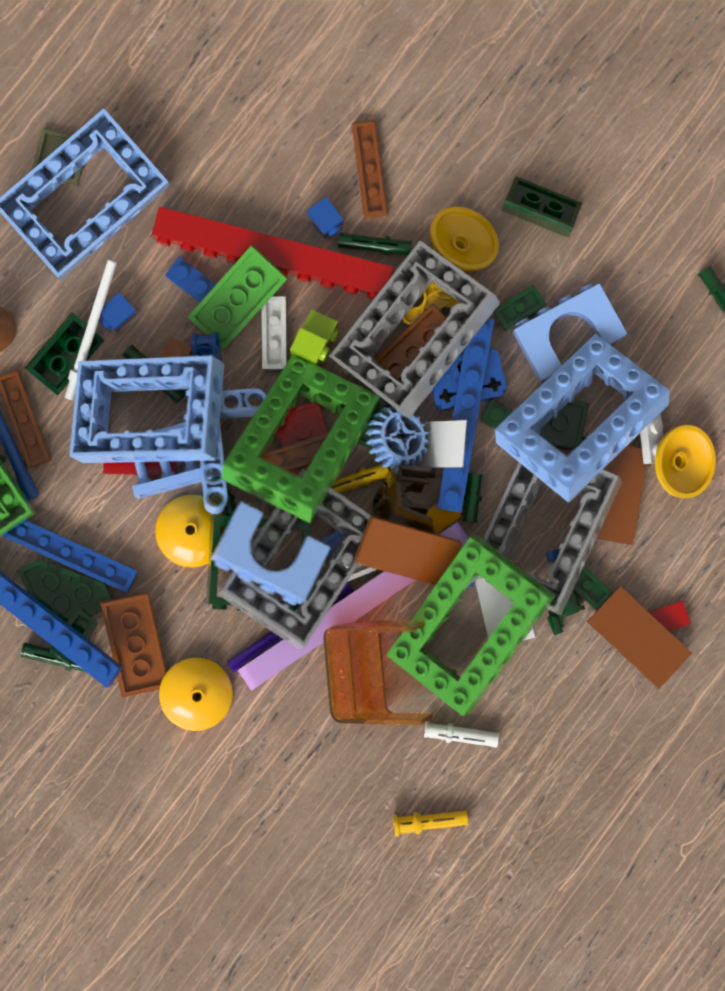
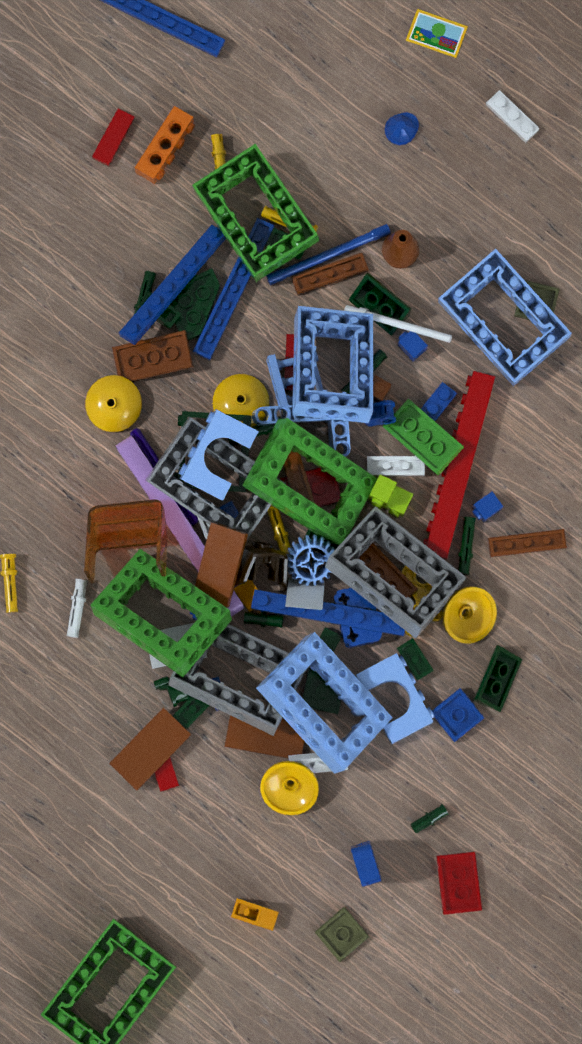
camera: 90 degrees right, 5 degrees down
(587, 255) = (457, 715): none -> blue plate

